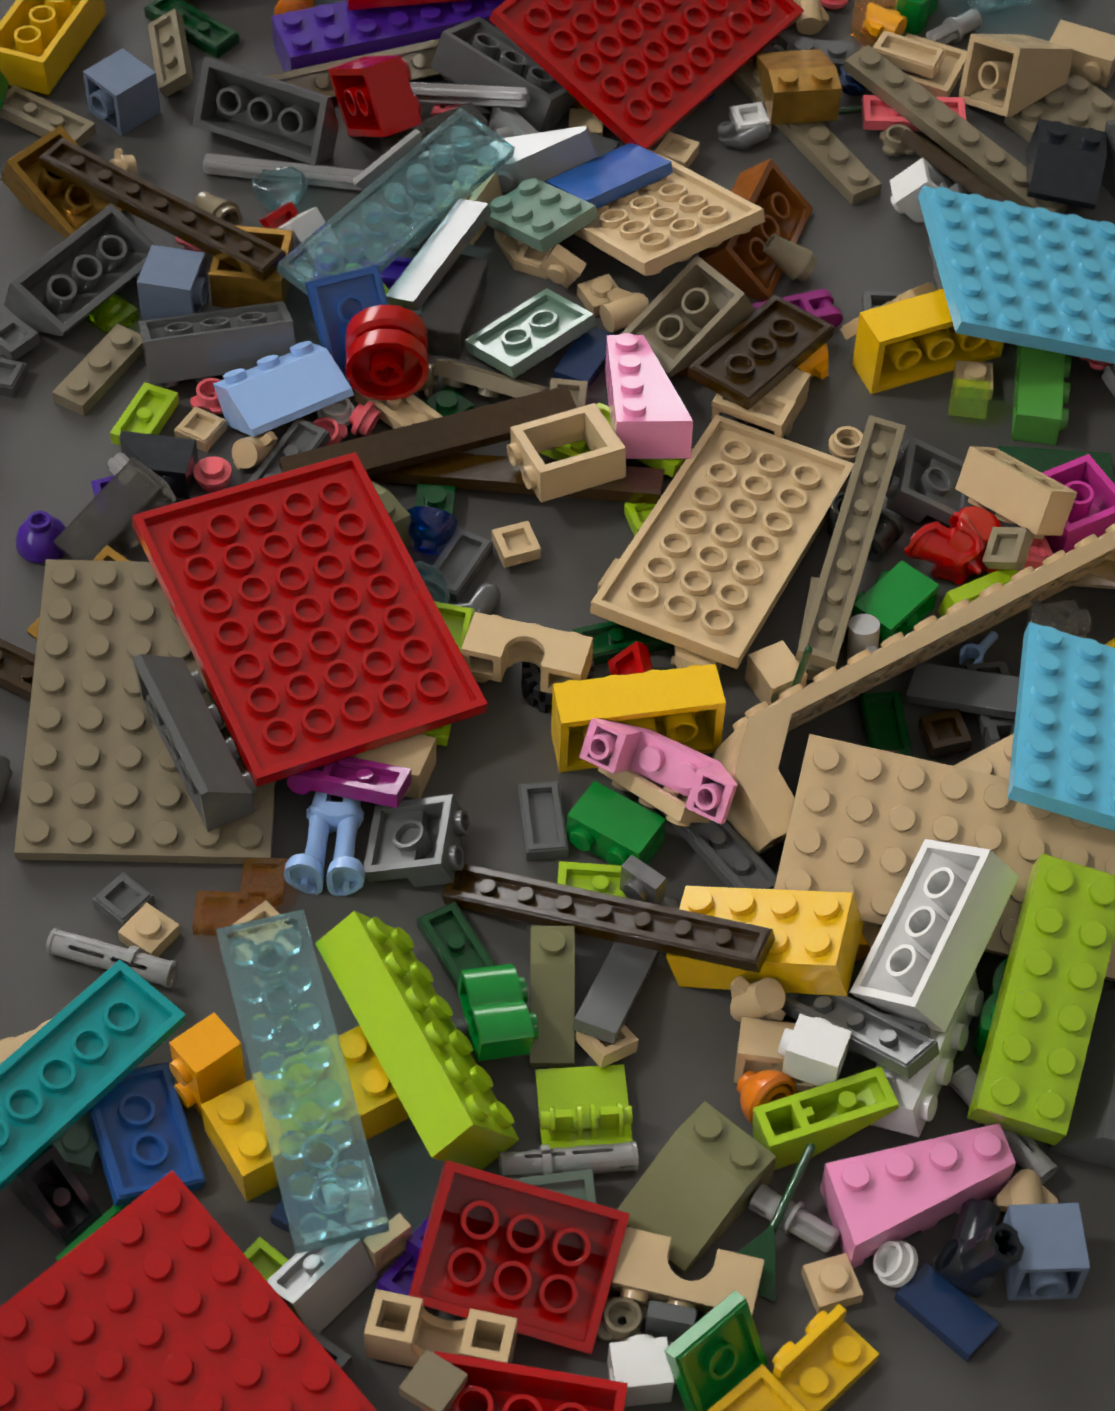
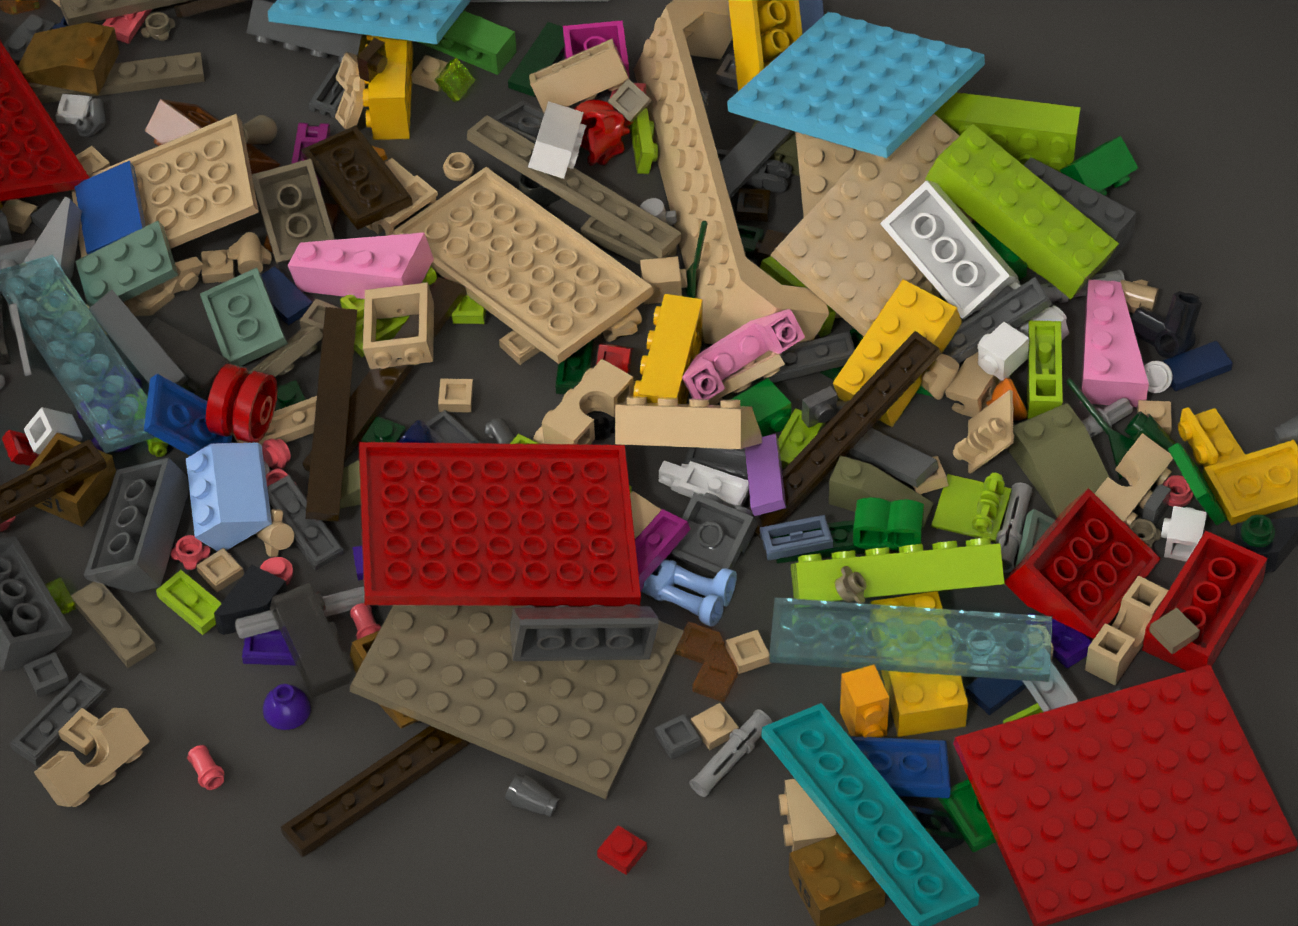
camera: 65 degrees left, 0 degrees up
(172, 283) = (58, 540): sand blue head -> none
(332, 973) = (851, 586): none -> dark tan plate
(464, 951) = (798, 541): none -> sand blue tile
(492, 817) = (702, 480): none -> white hinge
(515, 860) = (765, 476): none -> medium lavender tile
(530, 751) = (686, 424): none -> tan slope
(678, 1085) = (987, 433): none -> tan hinge
(788, 1280) = (1148, 426): none -> dark green cone
(895, 492) = (557, 140): none -> white brick
(898, 600) = (628, 181): green brick -> none
(904, 290) = (372, 60): none -> dark brown plate
(908, 185) = (230, 30): white slope -> none
(1053, 1255) = (1182, 277): sand blue head -> none

